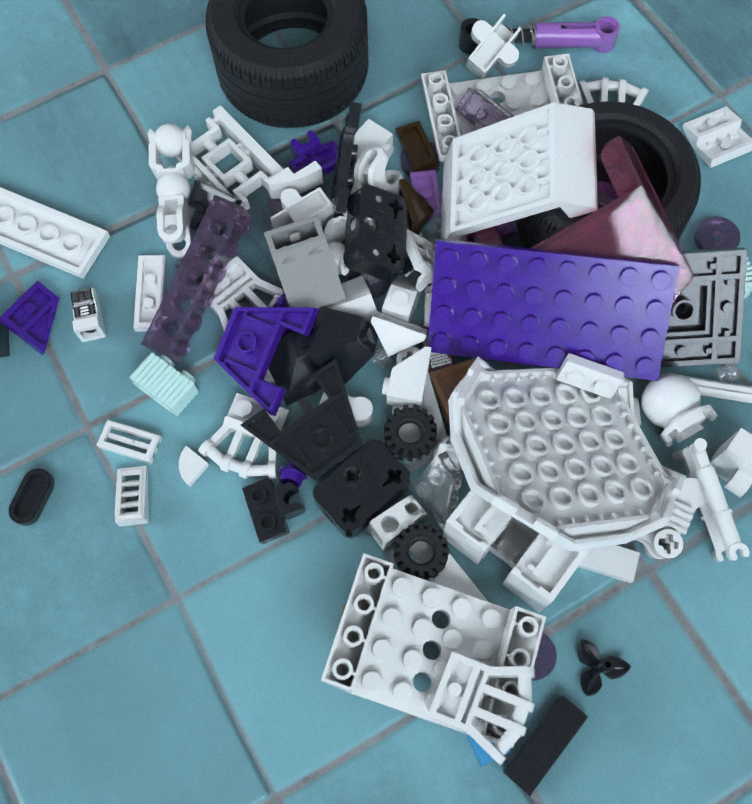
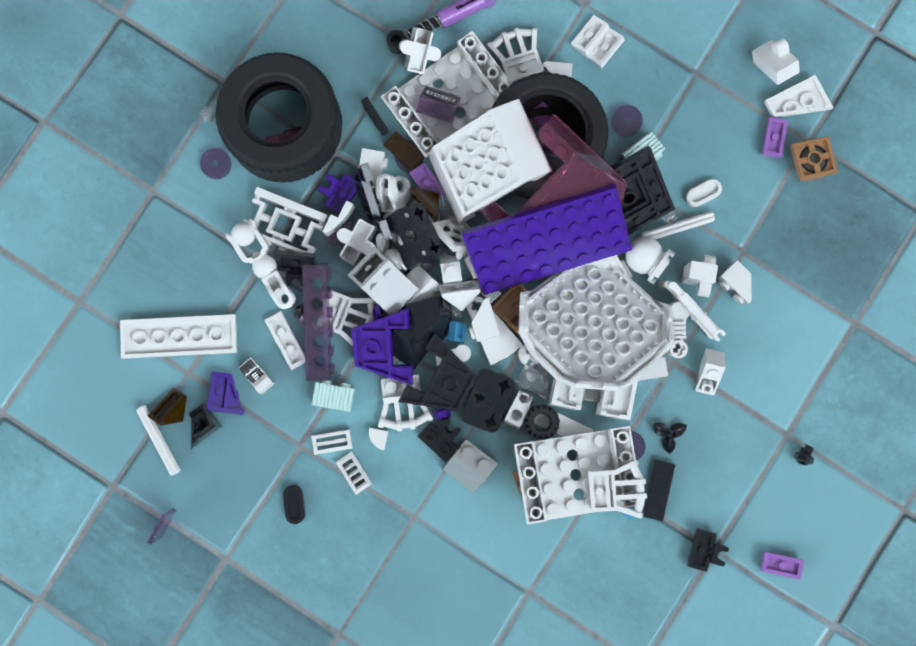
camera: 25 degrees left, 15 degrees up
(192, 80) = (210, 157): none -> clear purple piece
(289, 559) = (470, 466): none -> light grey slope
(367, 380) = (456, 332): none -> dark azure tile
(402, 97) = (378, 122): none -> black tile
(415, 416) = (512, 352): black tyre -> none
(589, 376) = (590, 267): white plate -> none
(699, 606) = (710, 371): none -> white slope

